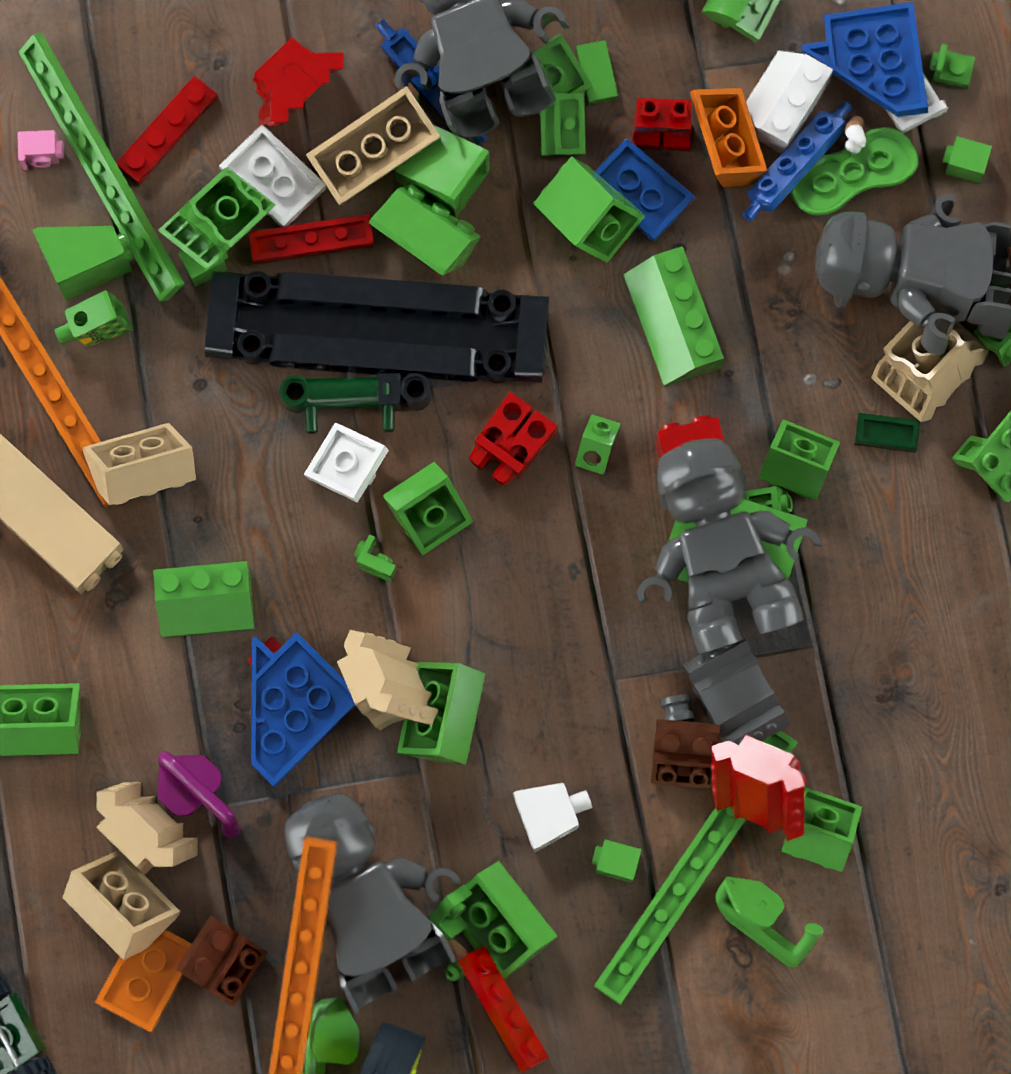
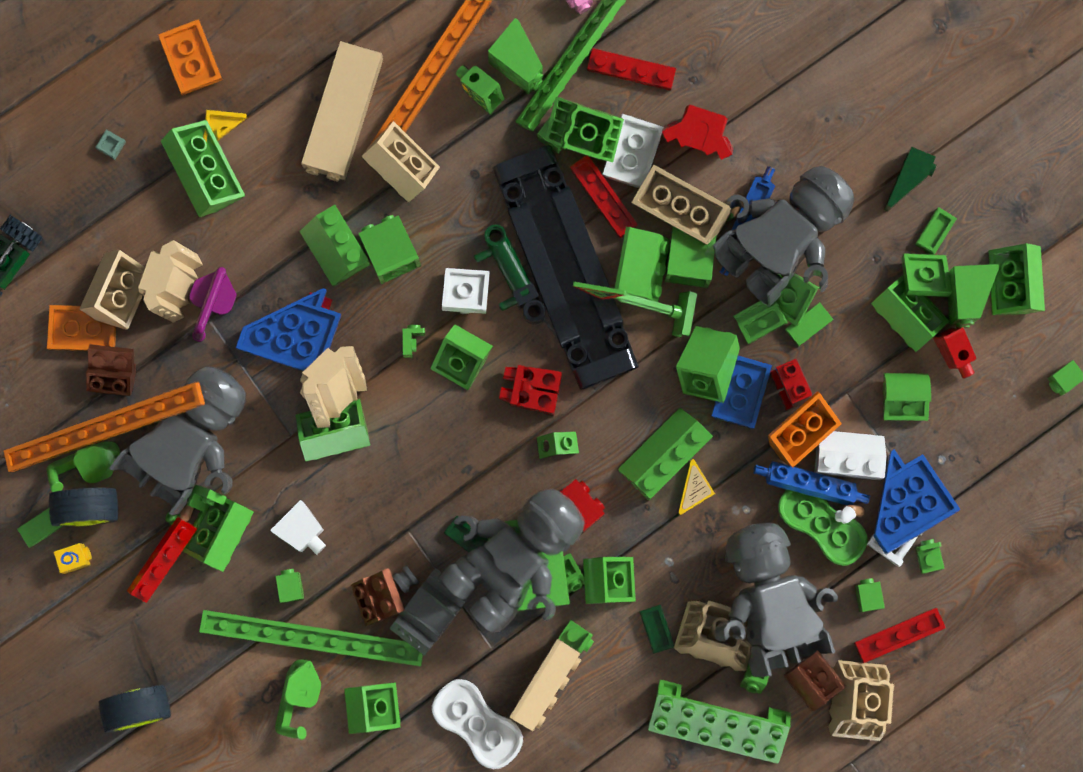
camera: 60 degrees right, 5 degrees up
(244, 529) = (389, 248): none -> bright green slope
(506, 213) = (682, 312): none -> bright green piece
(659, 612) = (457, 533): none -> dark green tile
(735, 303) = (695, 489): none -> tile
(759, 785) = (374, 655): red slope -> none
(852, 534) = (576, 637): none -> bright green bracket
(882, 714) = (490, 736): none -> white plate
(893, 598) = (545, 684): none -> tan slope

